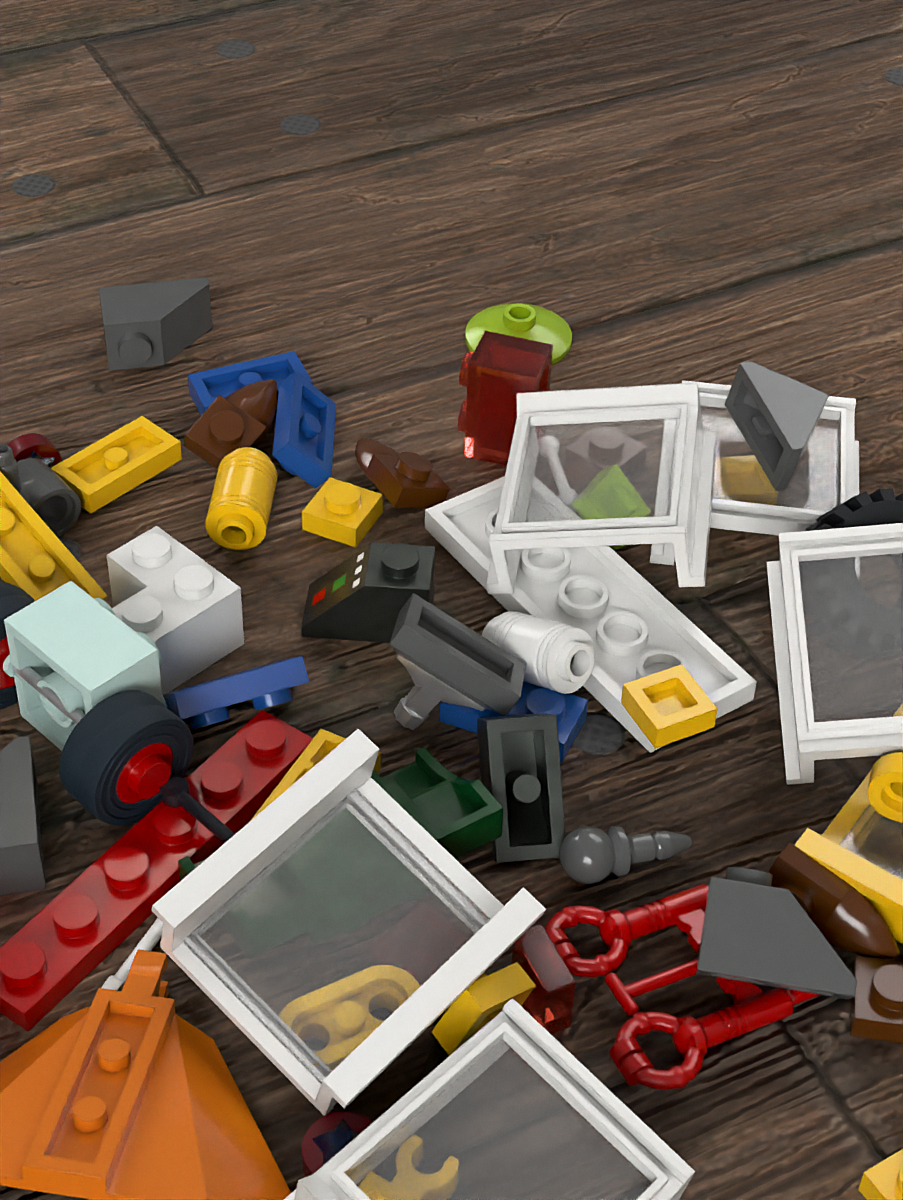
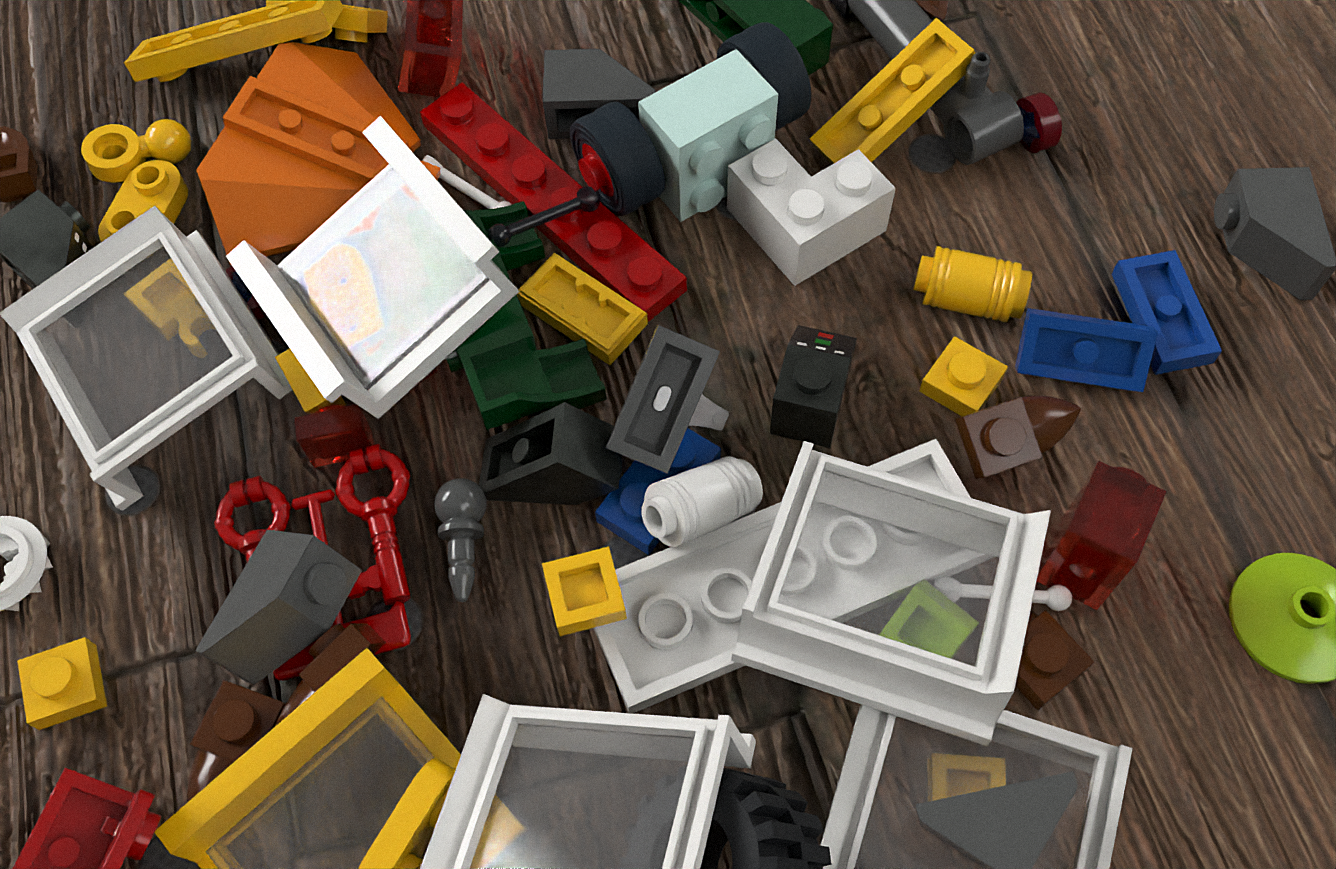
camera: 105 degrees right, 20 degrees up
(119, 462) = (1039, 191): yellow plate -> none
(234, 422) = (1092, 286): reddish brown plate -> none
(265, 685) = (711, 257): blue plate -> none

